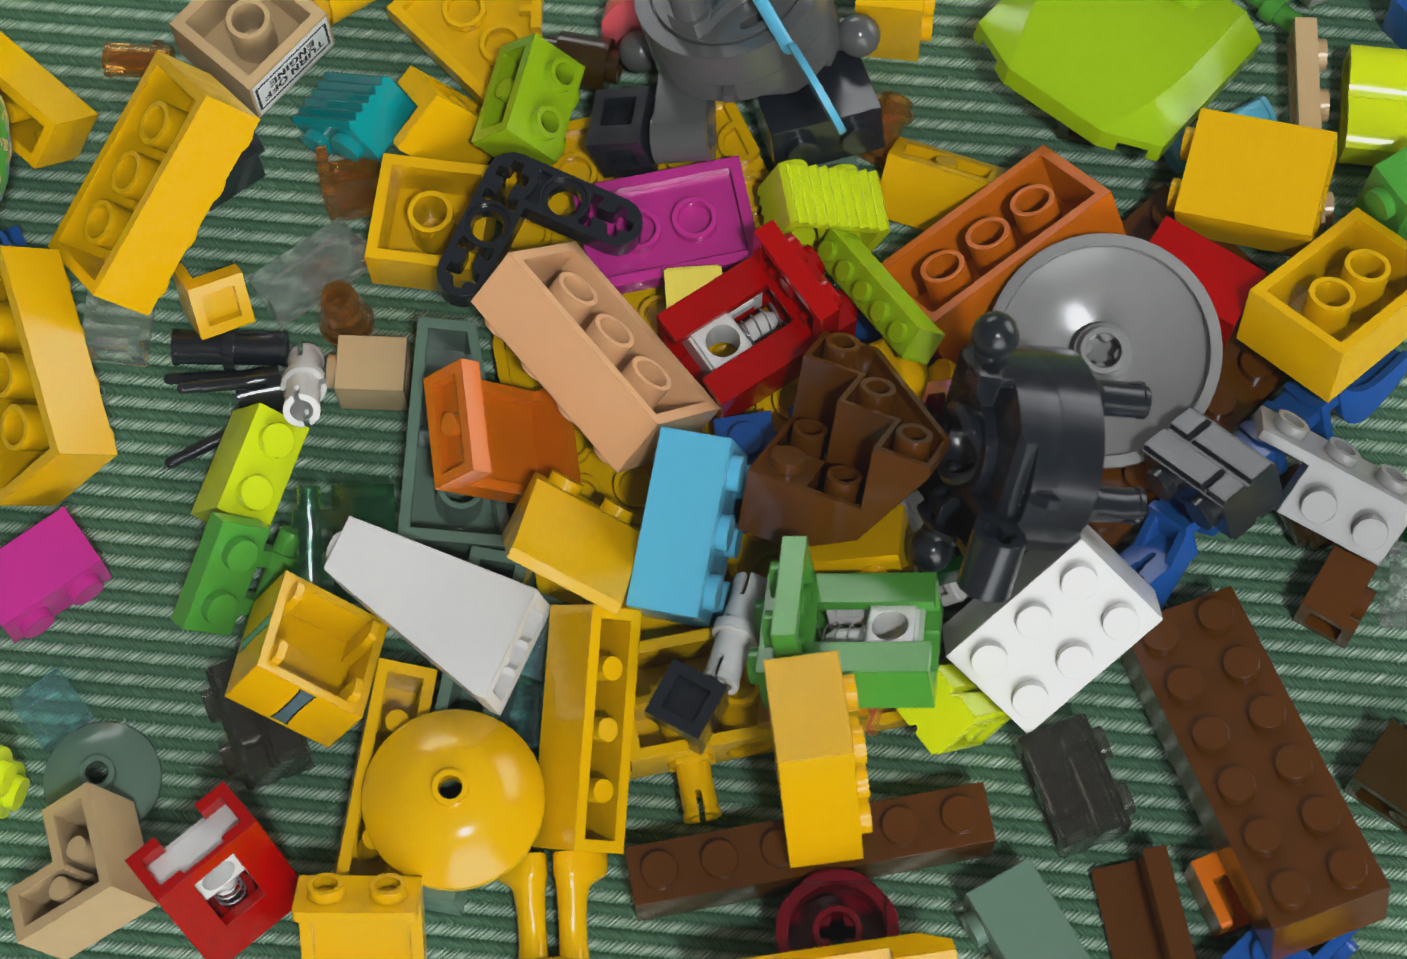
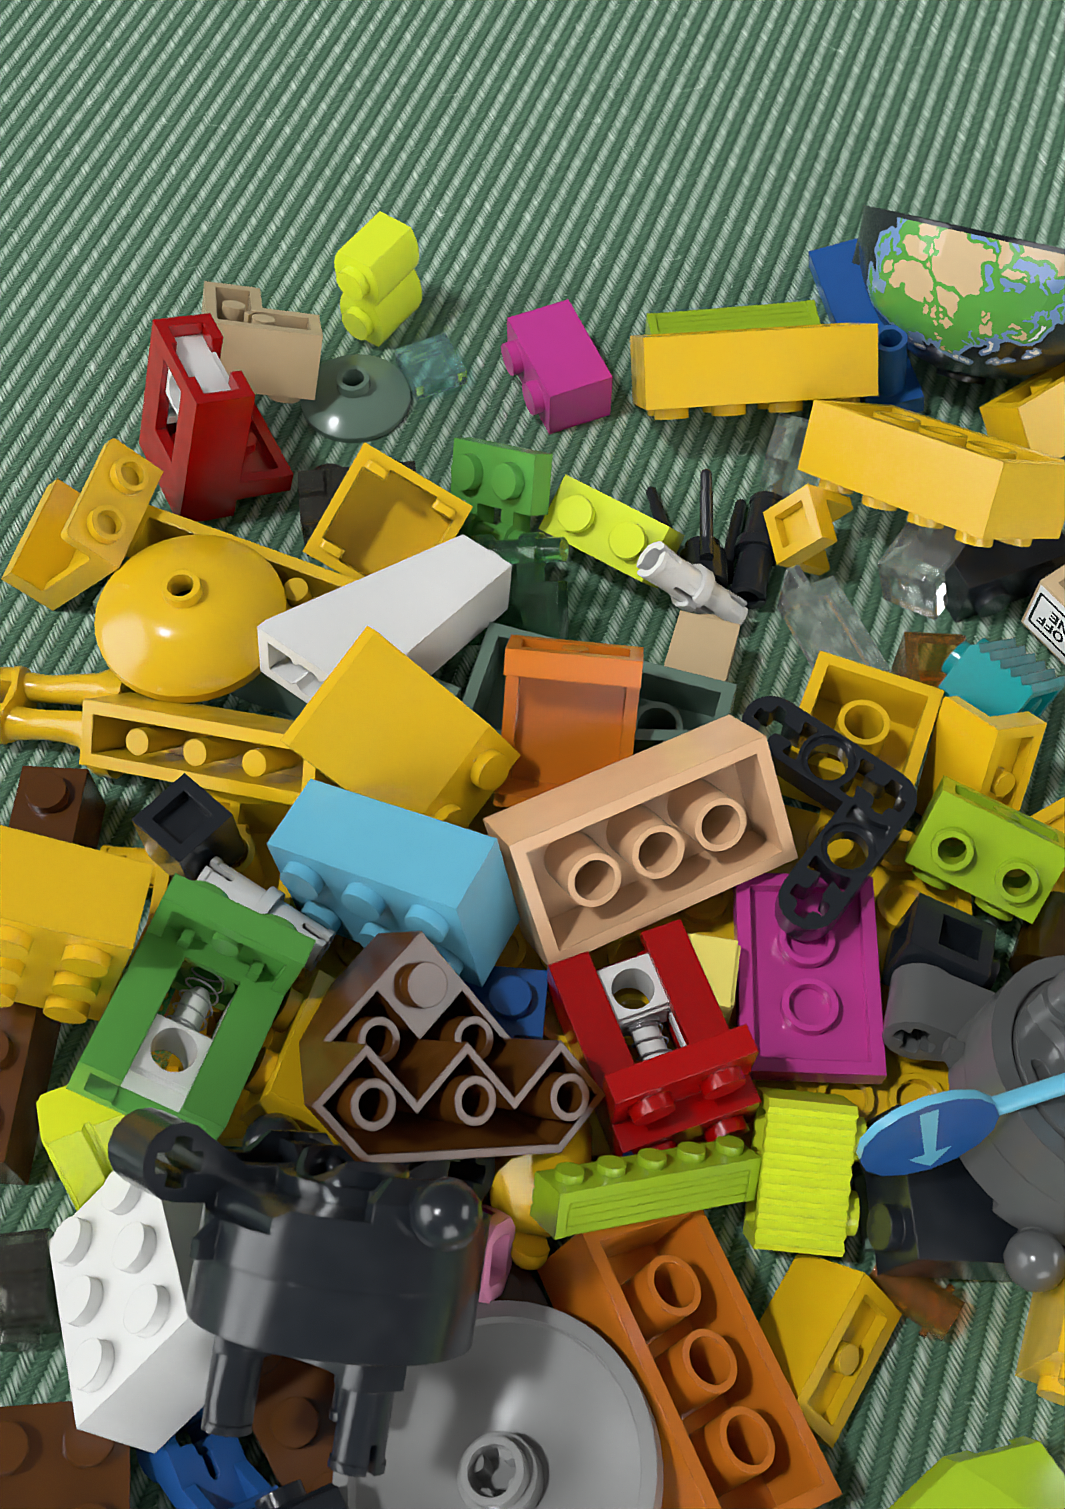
camera: 100 degrees right, 10 degrees down
(241, 202) = (916, 567): none -> clear panel
(344, 312) = (771, 647): clear orange cone -> none

